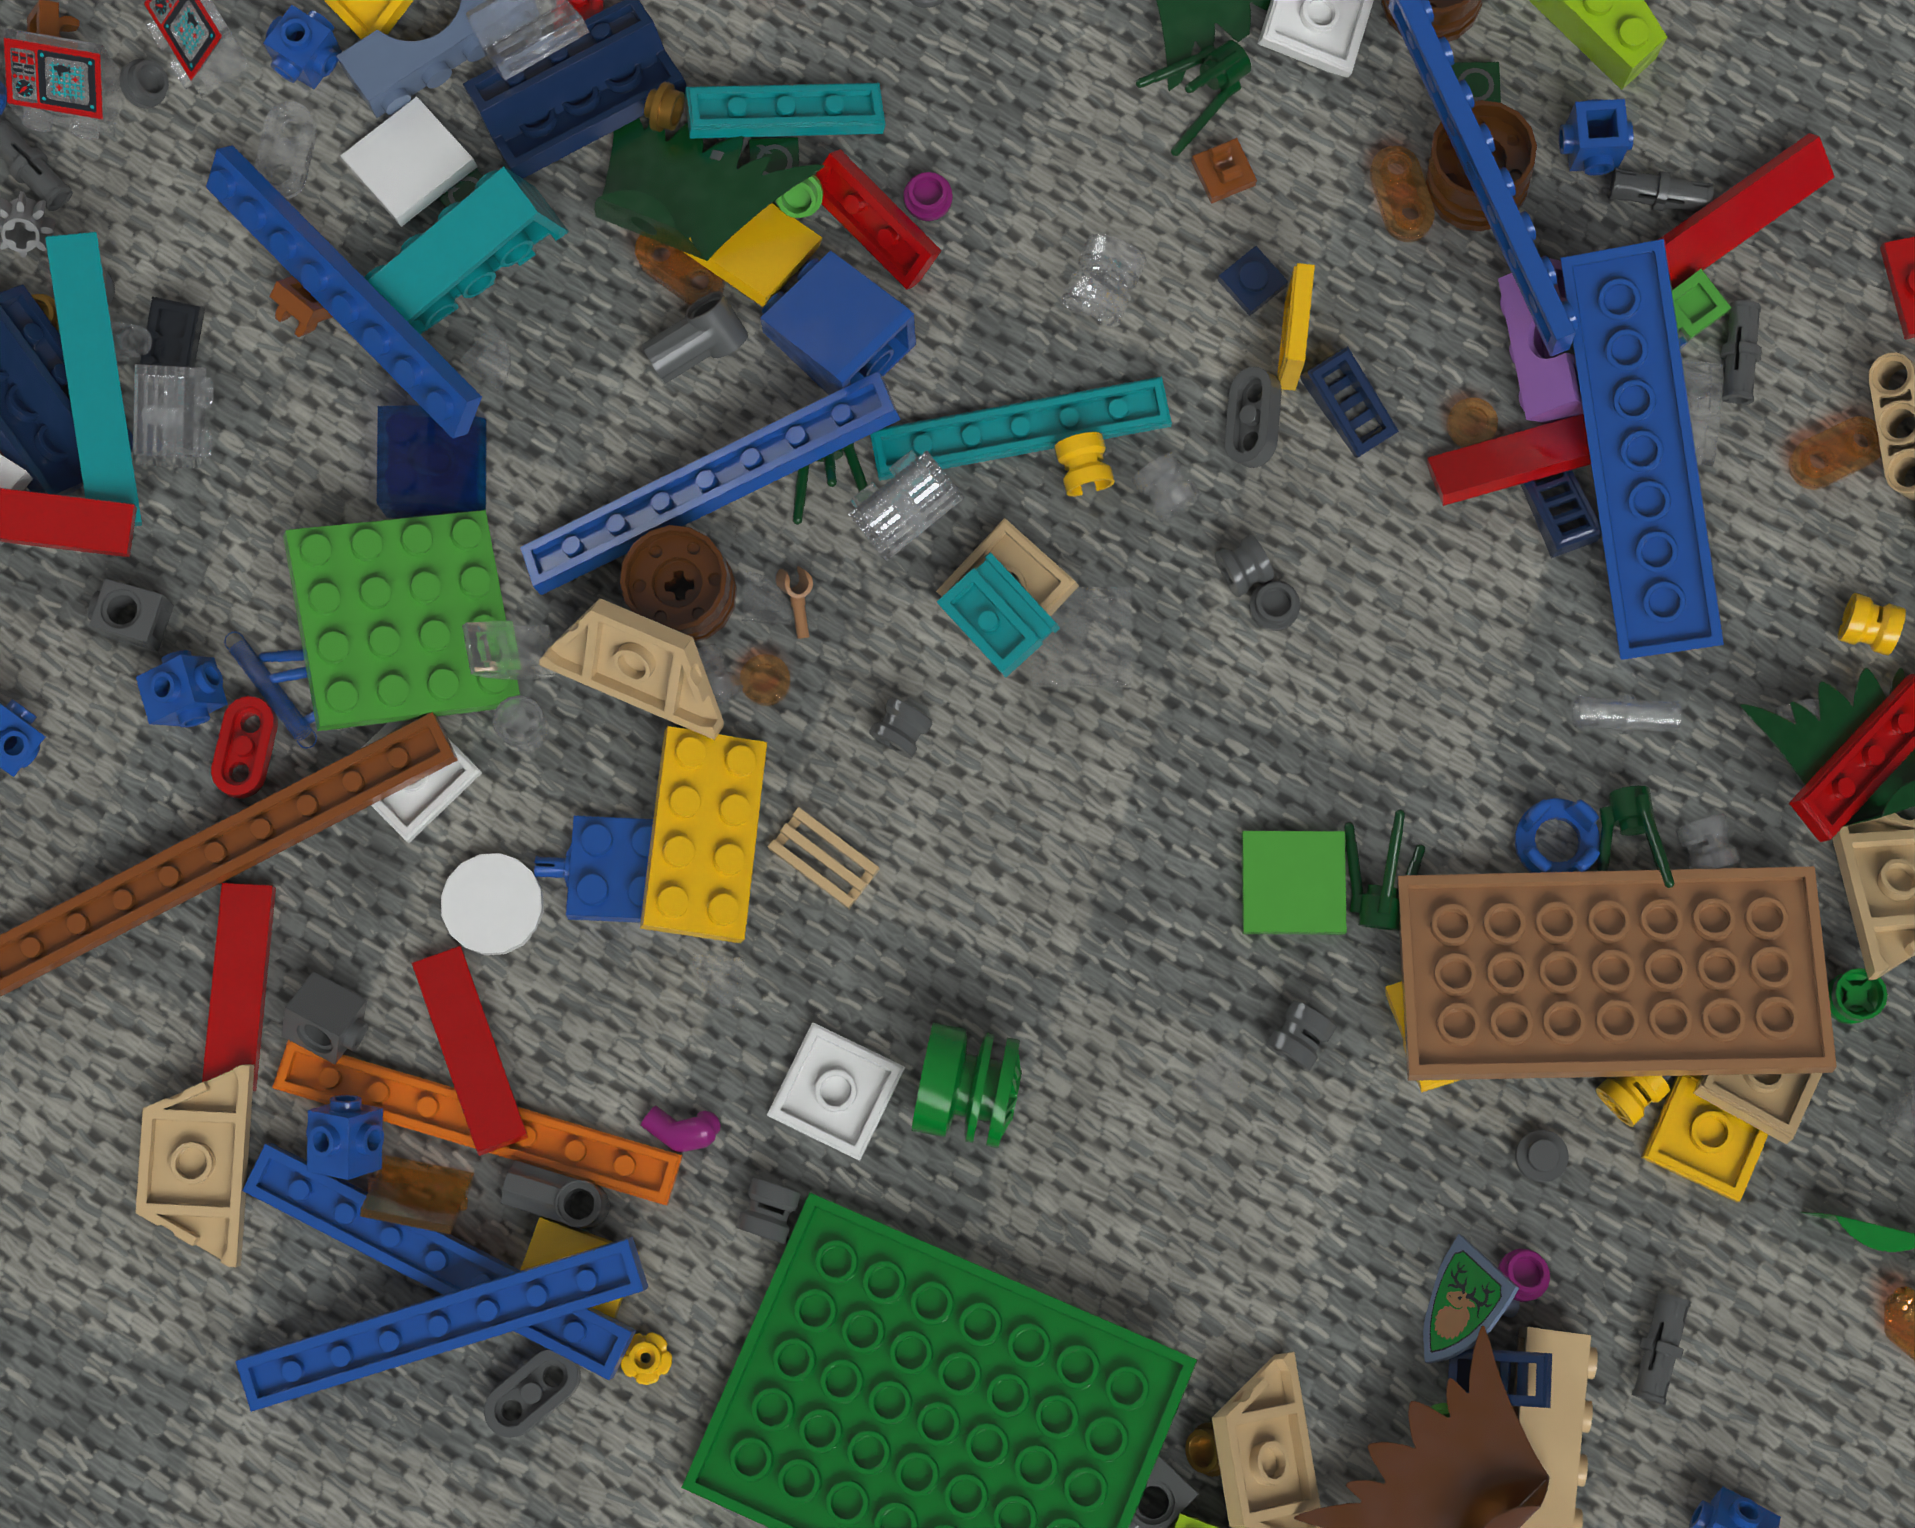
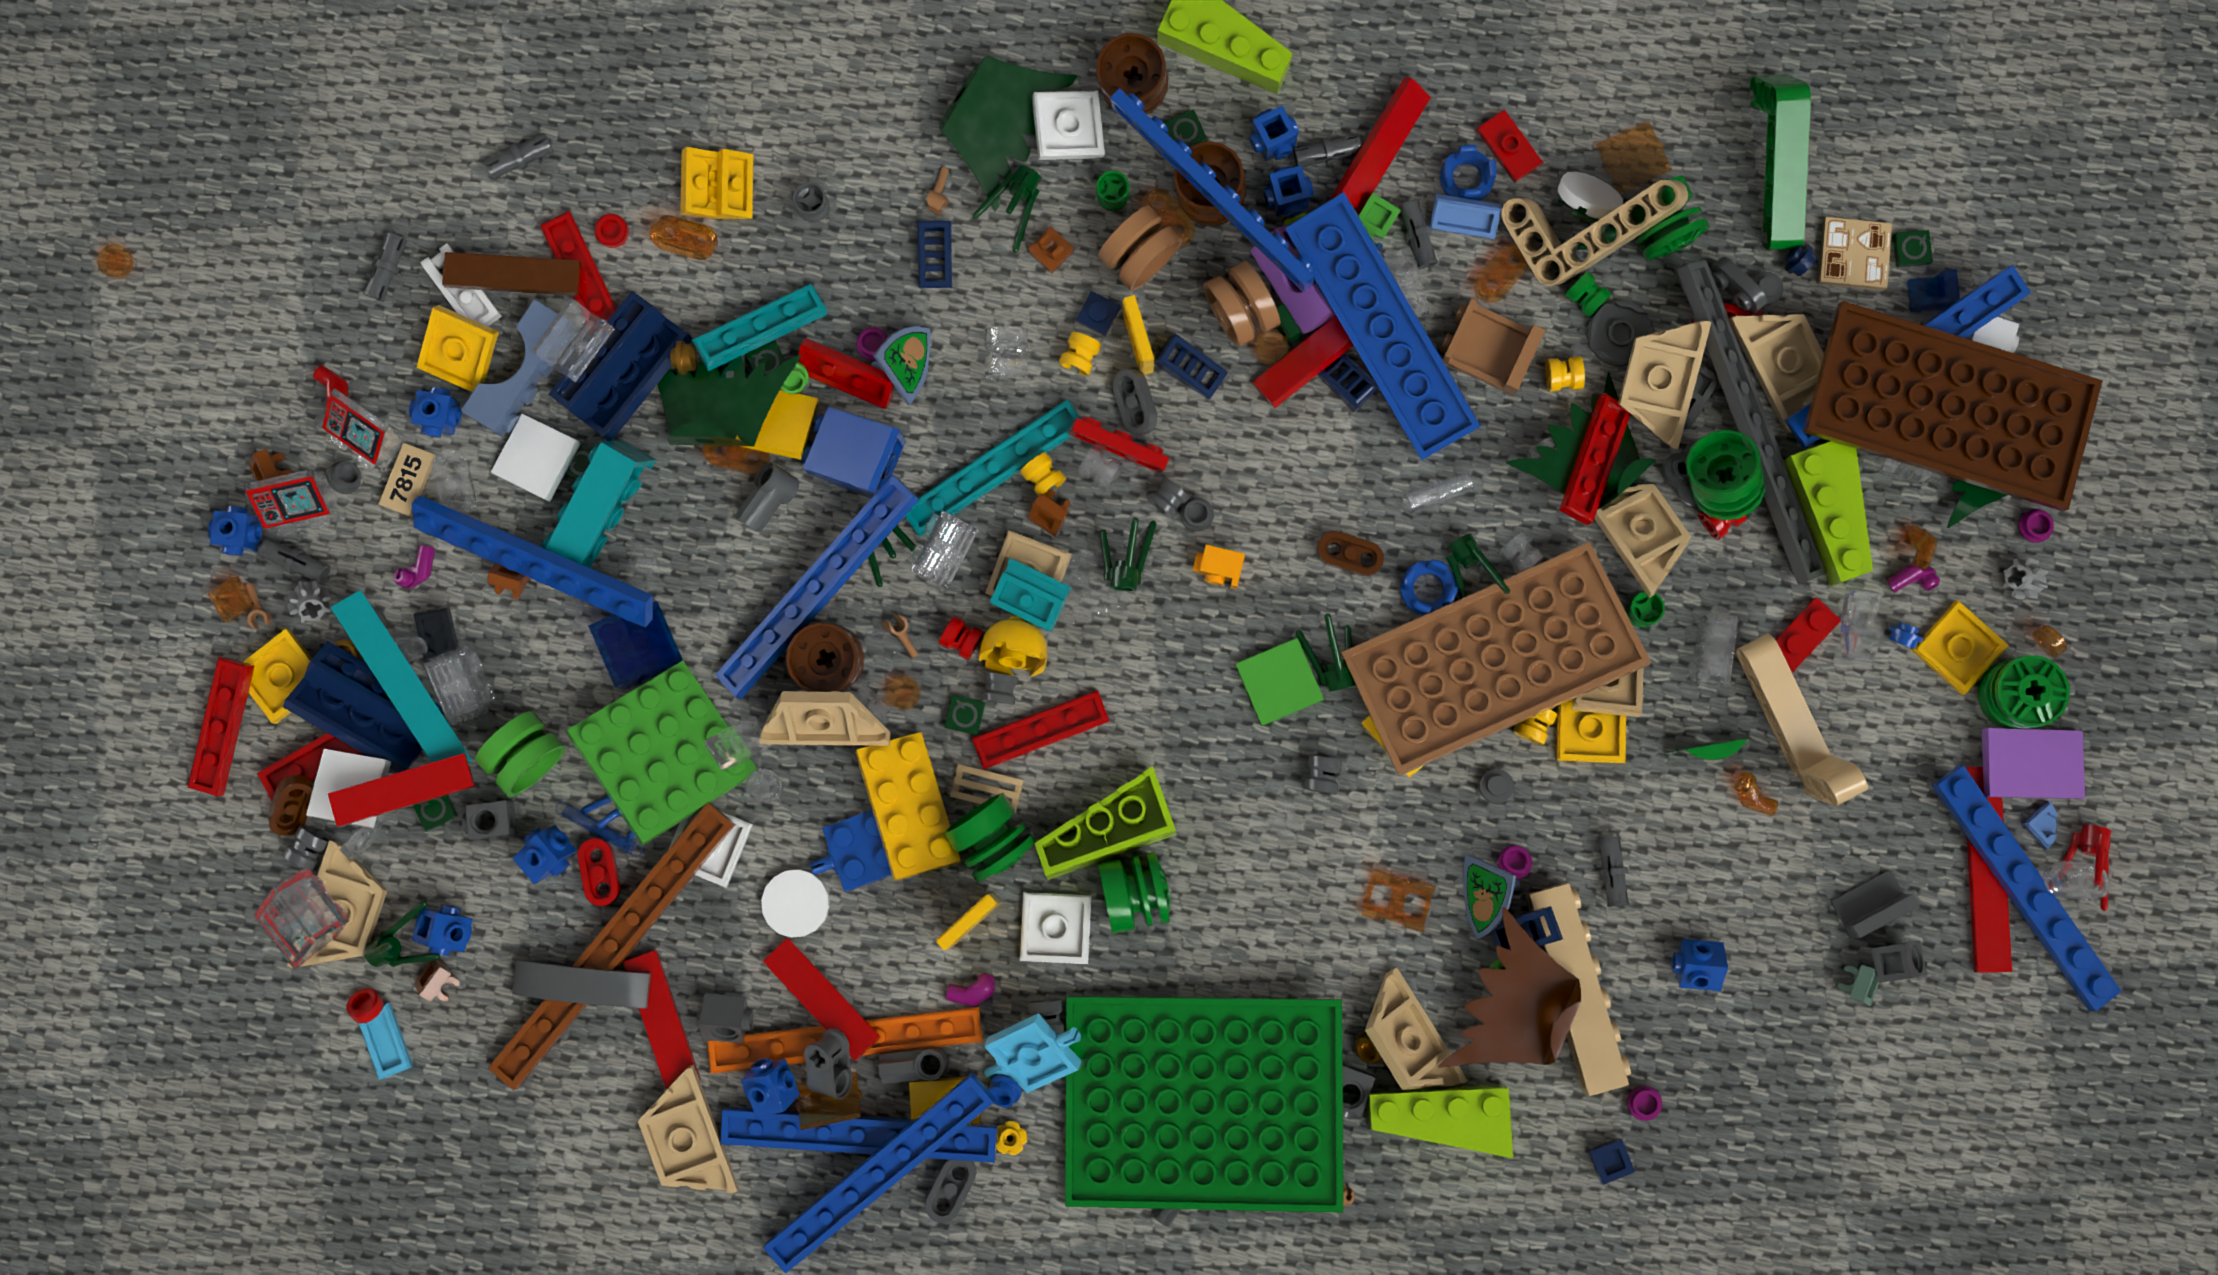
camera: 20 degrees left, 5 degrees up
(62, 572) = (435, 812): none -> dark green tile
(152, 889) = (581, 984): none -> dark grey slope
(184, 248) = (418, 572): none -> magenta arm
(209, 539) = (520, 753): none -> bright green wheel
(225, 120) = (407, 479): none -> tan tile
(435, 1145) = (829, 1065): none -> dark grey piece
(667, 1287) = (1004, 1090): none -> blue plate
(719, 1023) = (968, 921): none -> yellow tile
(728, 1249) = (1032, 1053): none -> medium azure plate
(798, 923) = (990, 837): none -> green wheel
(837, 745) = (965, 715): none -> dark green tile
(877, 636) = (967, 642): none -> red wheel
(933, 809) = (1040, 729): none -> red tile
(937, 672) = (1014, 645): none -> yellow cylinder
(963, 232) = (905, 360): none -> shield
(971, 982) = (1114, 826): none -> lime wedge
(1069, 518) = (1048, 513): none -> dark orange tile
(1077, 74) = (924, 226): none -> dark blue slope
(1095, 37) = (935, 200): none -> medium nougat hand
(1139, 643) = (1125, 574): none -> dark green plant
(1206, 321) = (1080, 353): none -> yellow wheel
(1206, 464) = (1119, 443): none -> red plate
(1277, 686) = (1219, 565): none -> light orange brick
(1342, 113) = (1114, 185): none -> green wheel
(1344, 1245) = (1394, 911): none -> clear orange piece
(1347, 211) = (1140, 247): none -> medium nougat wheel
(1457, 342) = (1241, 304): none -> medium nougat wheel
(1469, 744) = (1350, 551): none -> reddish brown plate
(1506, 397) = (1287, 326): none -> dark green tile
(1584, 219) = (1288, 180): none -> blue brick
(1780, 545) = (1490, 347): none -> medium nougat panel
(1818, 354) = (1465, 216): none -> medium blue tile
(1856, 275) = (1468, 155): none -> blue piece

